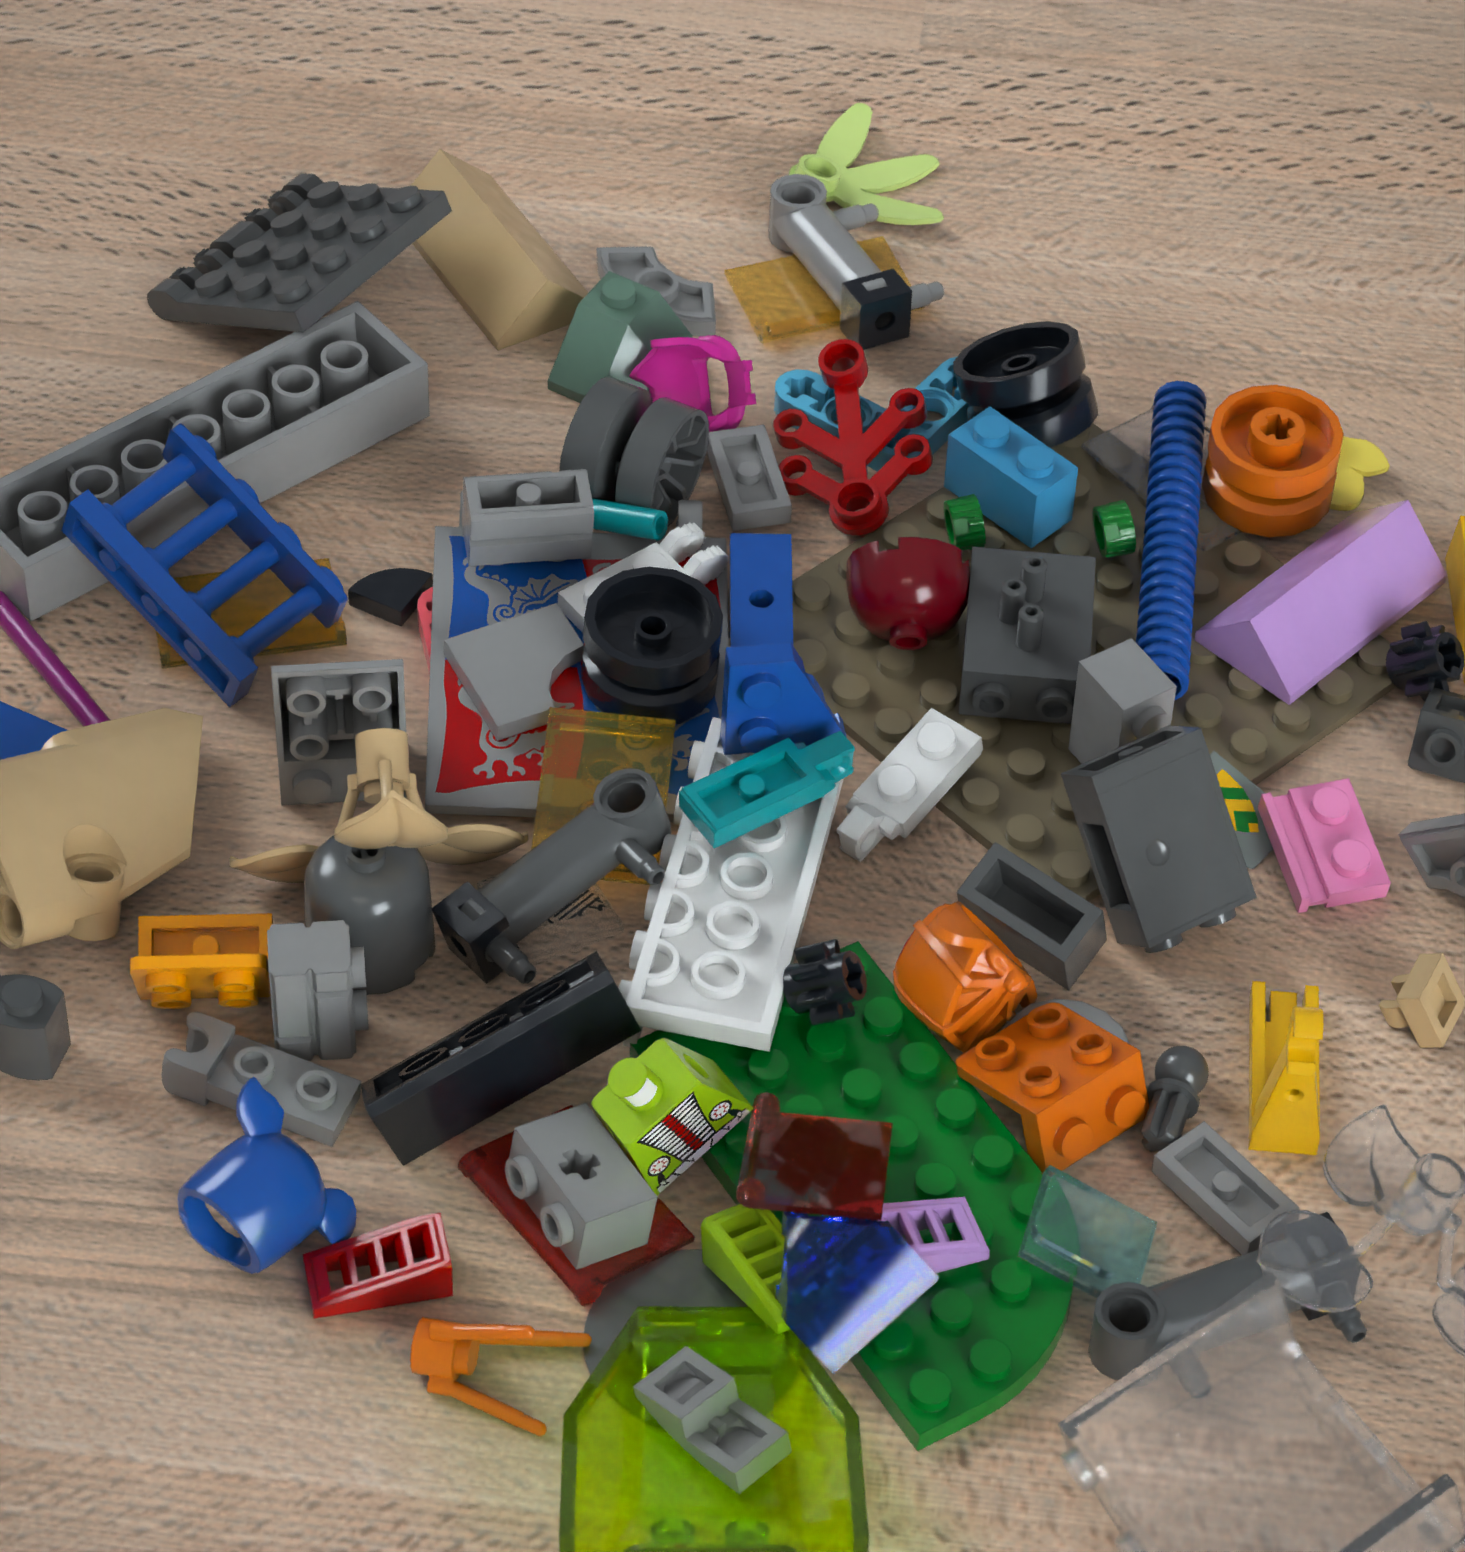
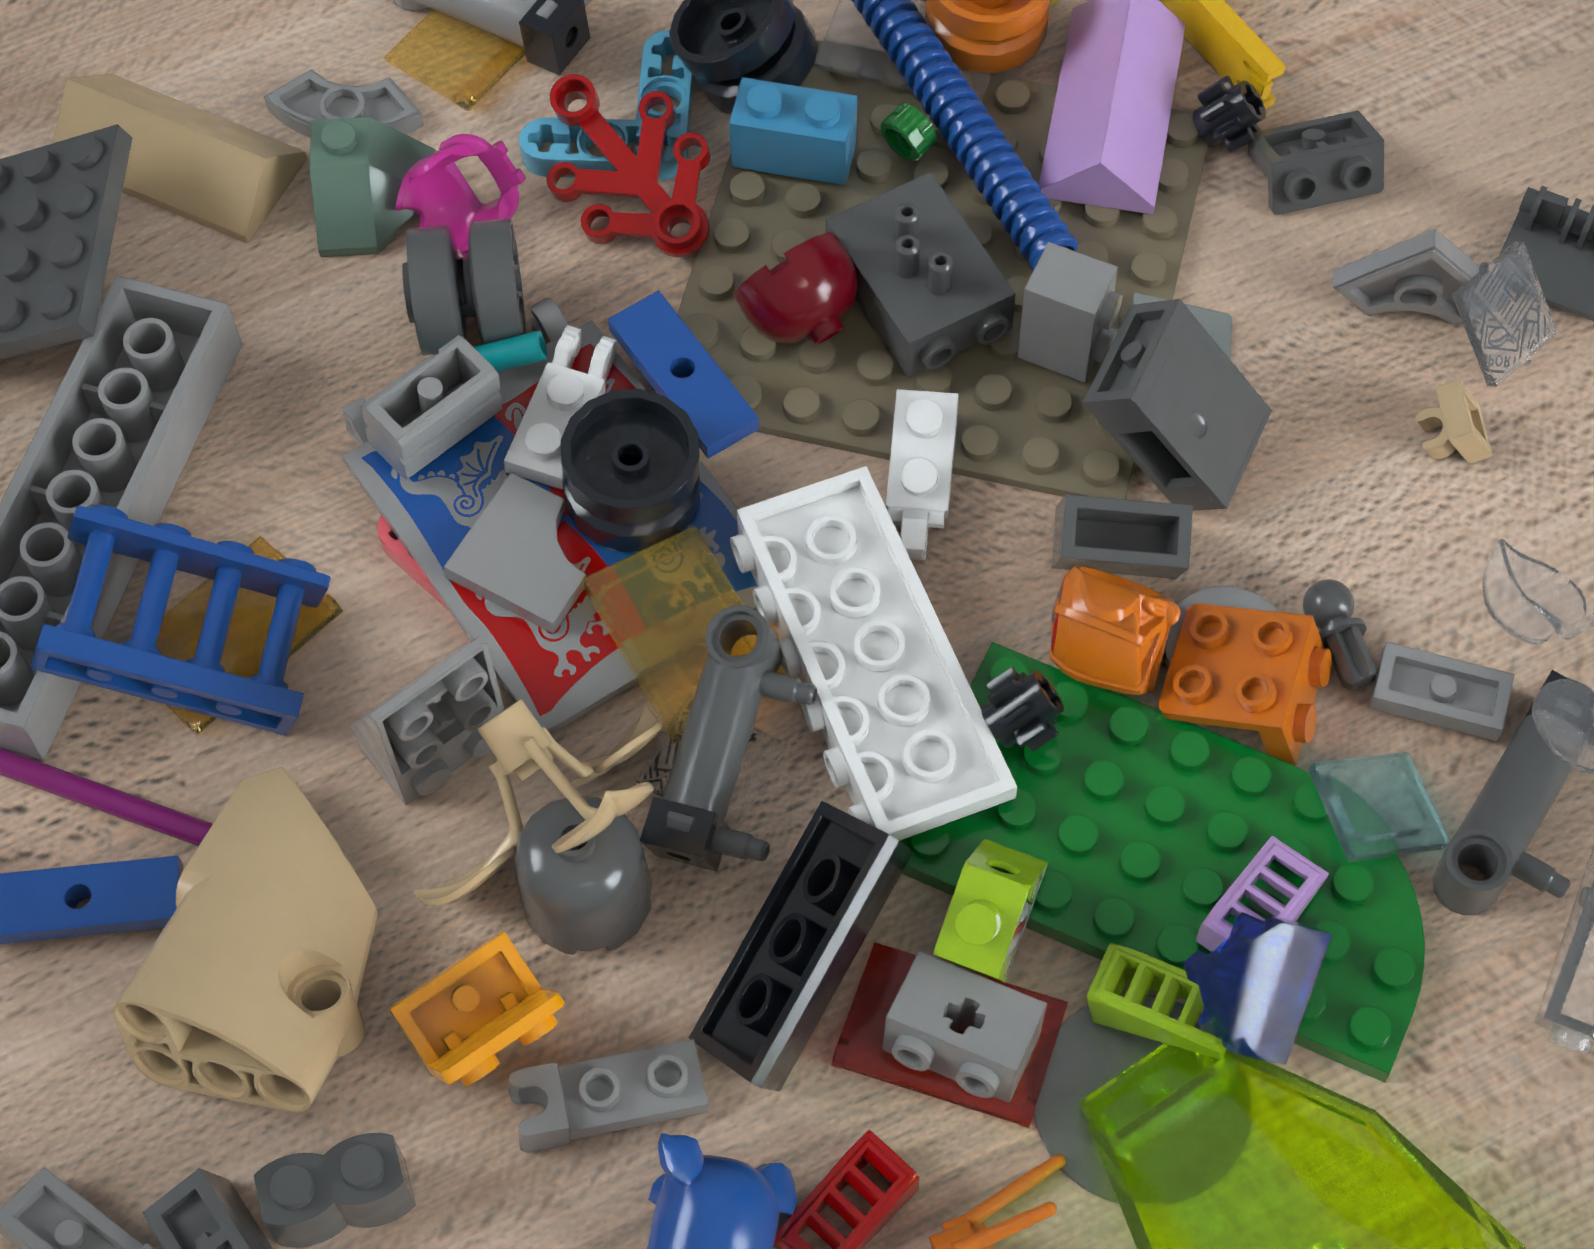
camera: 30 degrees left, 15 degrees up
(313, 989) = (605, 985): light grey brick -> none
(390, 593) = (345, 540): black tile -> none
(708, 1419) = (1232, 1176): light grey slope -> none
(748, 478) = (567, 250): light grey plate -> none
(765, 786) = (842, 558): teal hinge -> none
(771, 699) = (798, 477): blue wing -> none
(813, 1163) = (1152, 890): clear red piece -> none
(964, 522) = (786, 195): green axle -> none
(1284, 1071) = (1399, 555): yellow hinge -> none
(1324, 845) = (1274, 327): bright pink plate -> none

